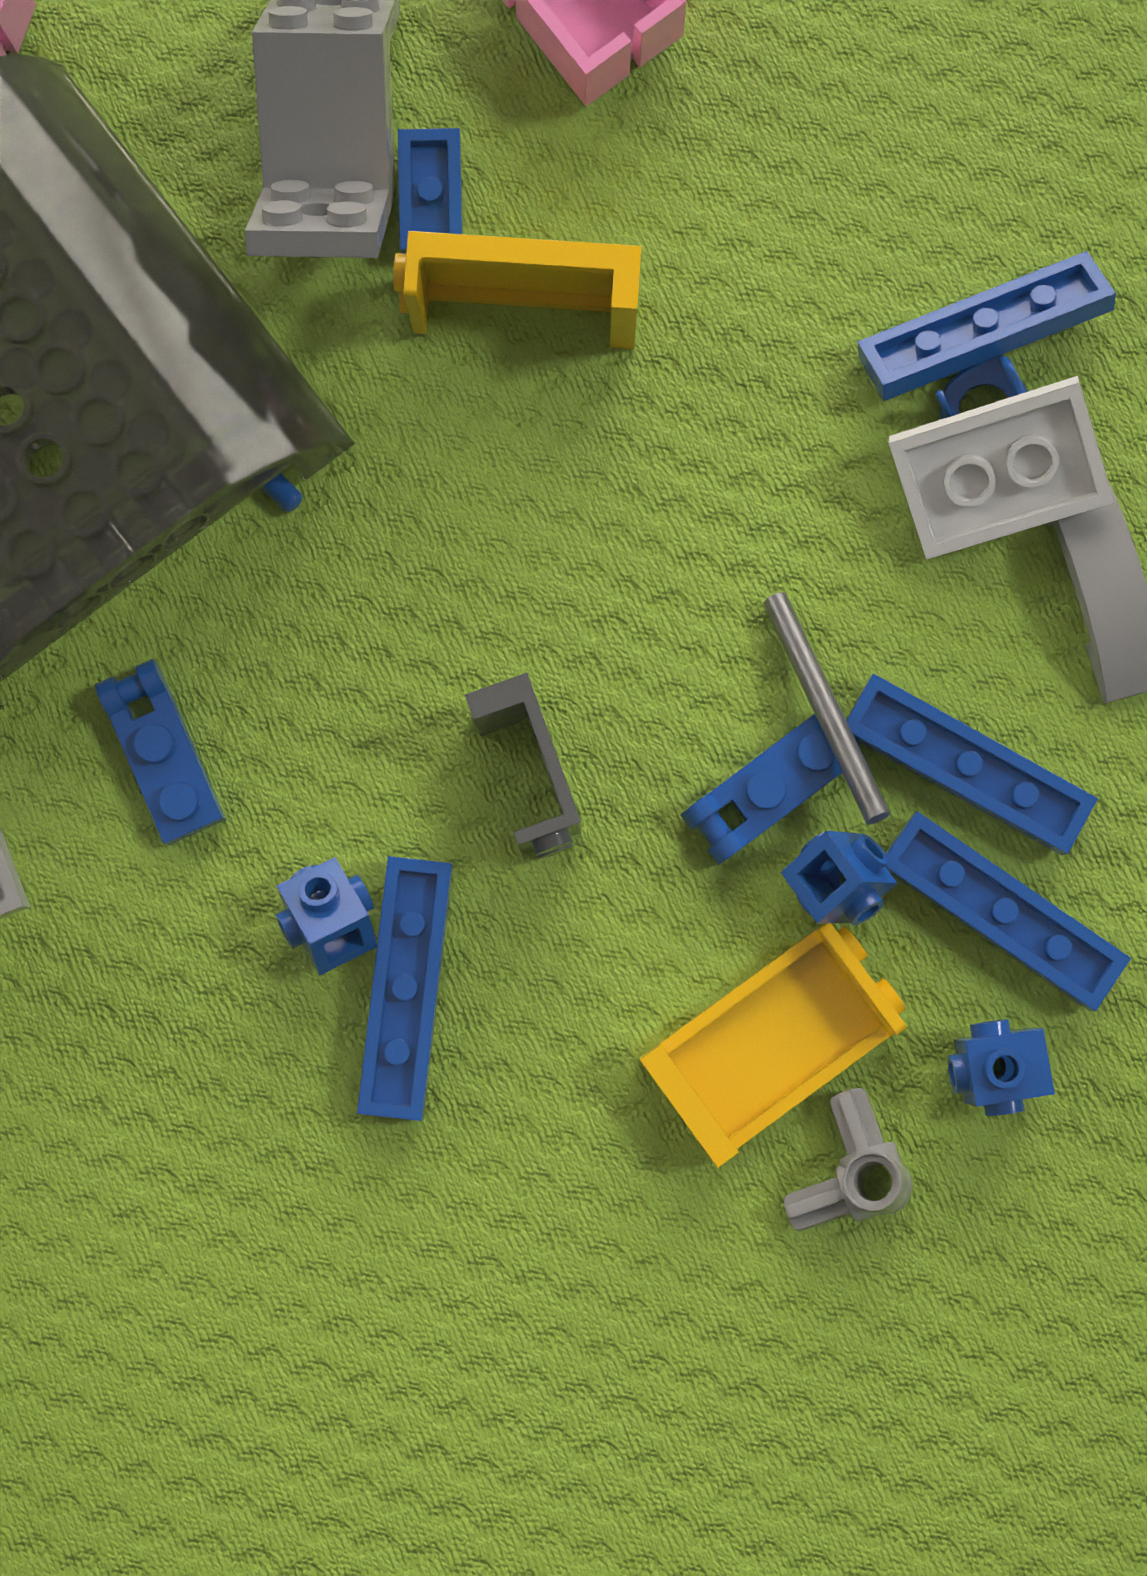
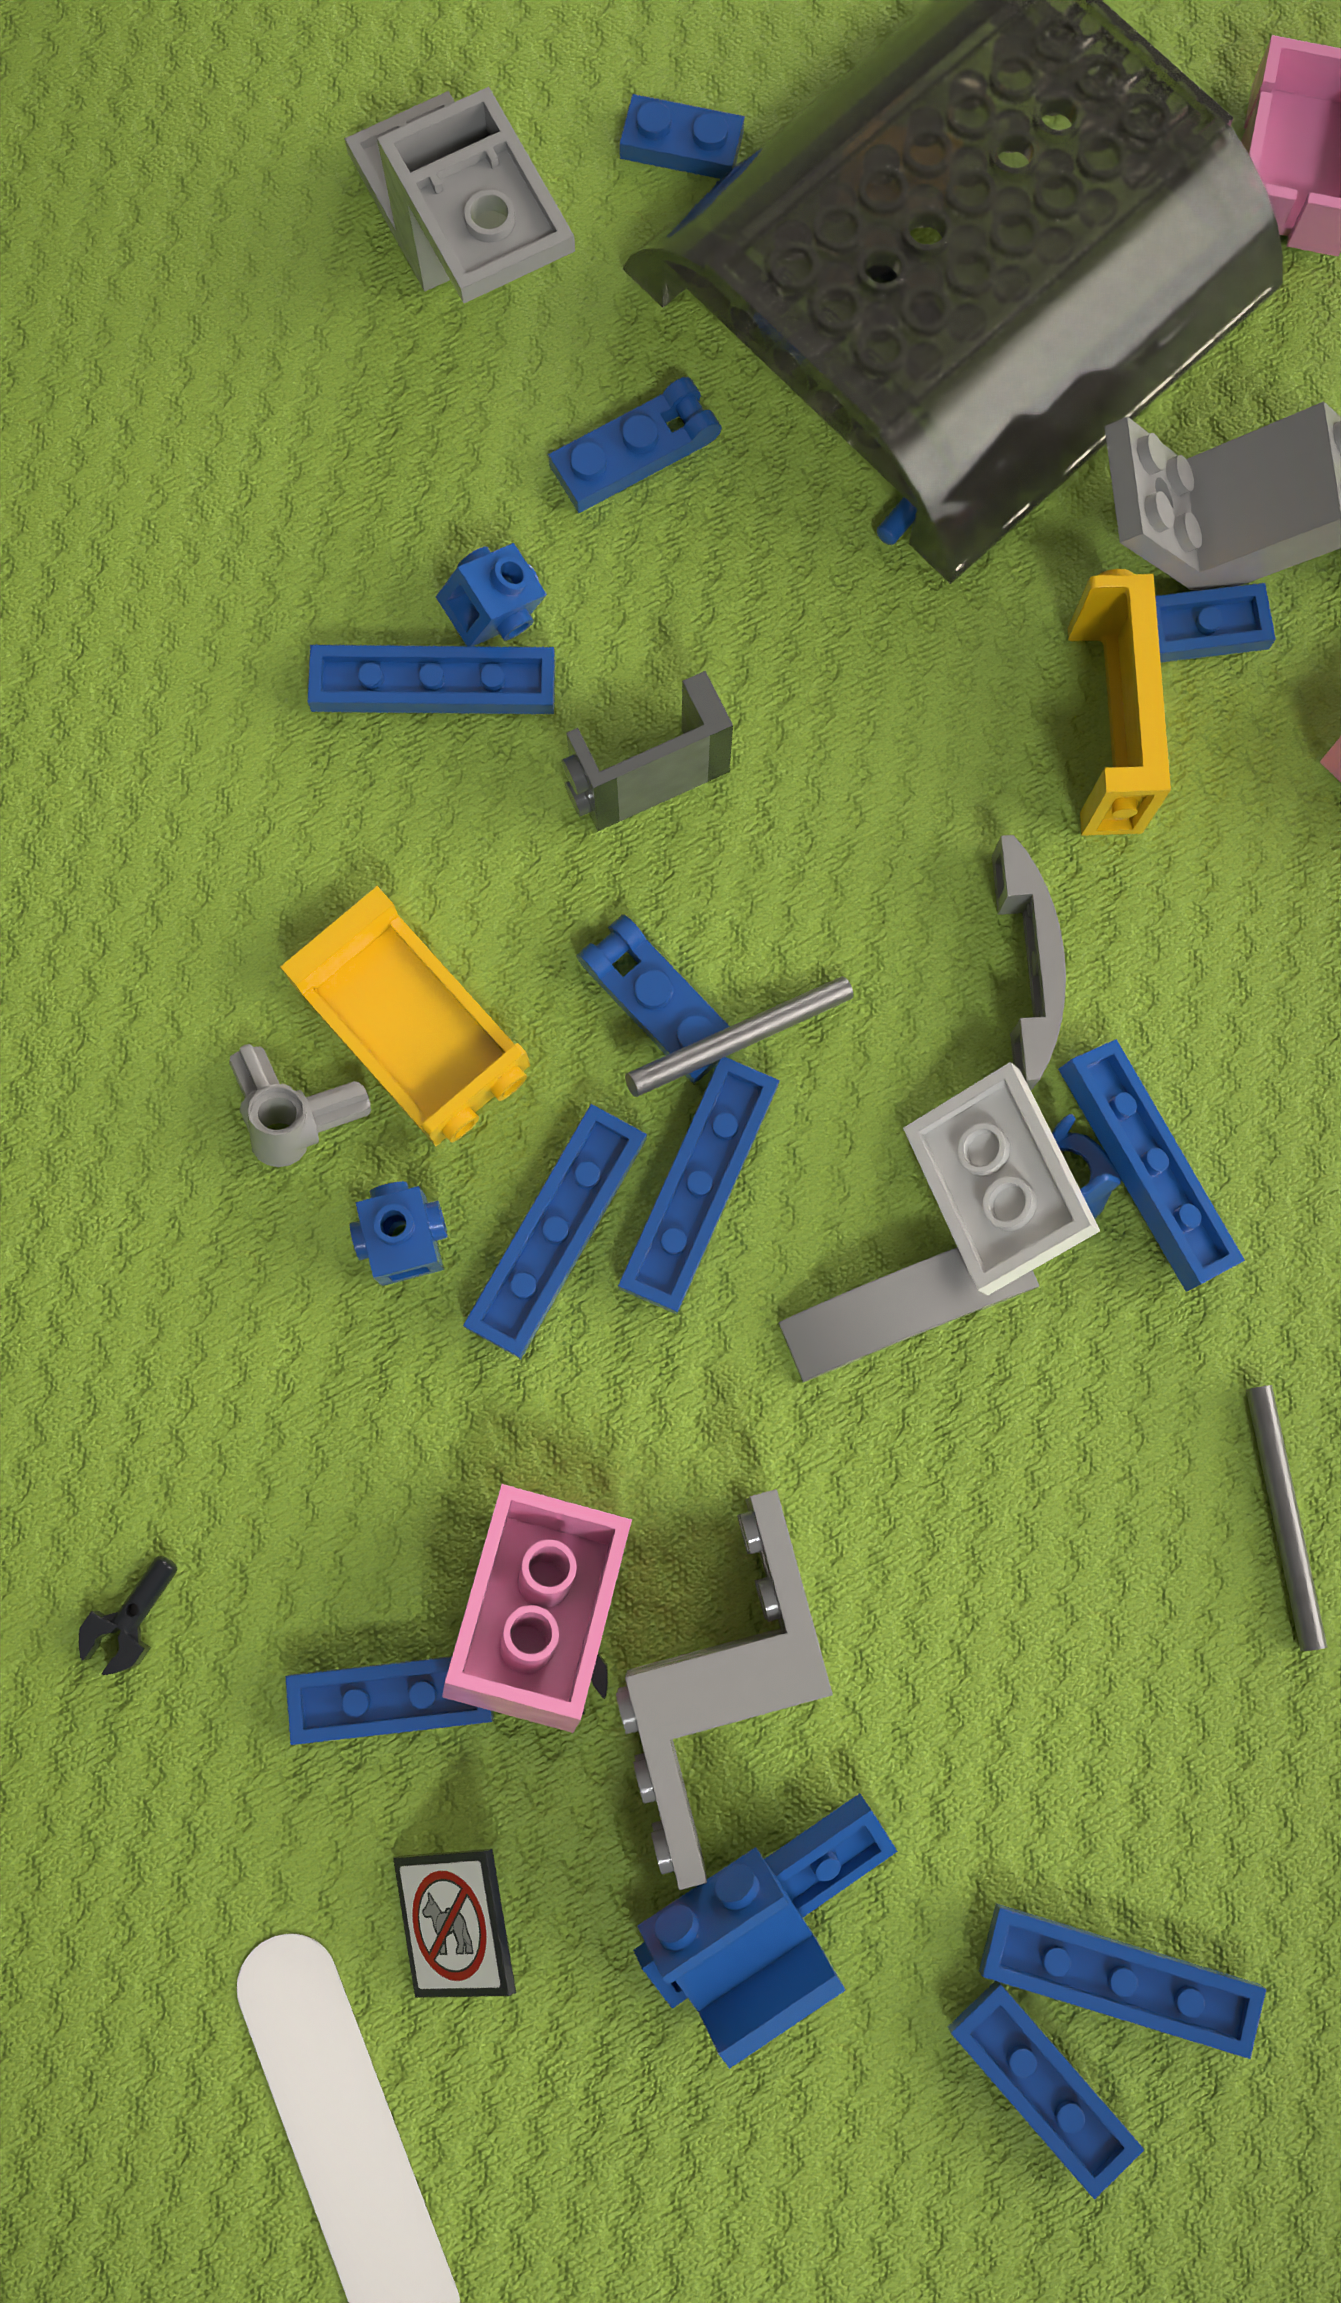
camera: 80 degrees right, 5 degrees down
(840, 877) = (570, 1059): blue brick -> none
(854, 416) = (1023, 890): none -> light grey slope

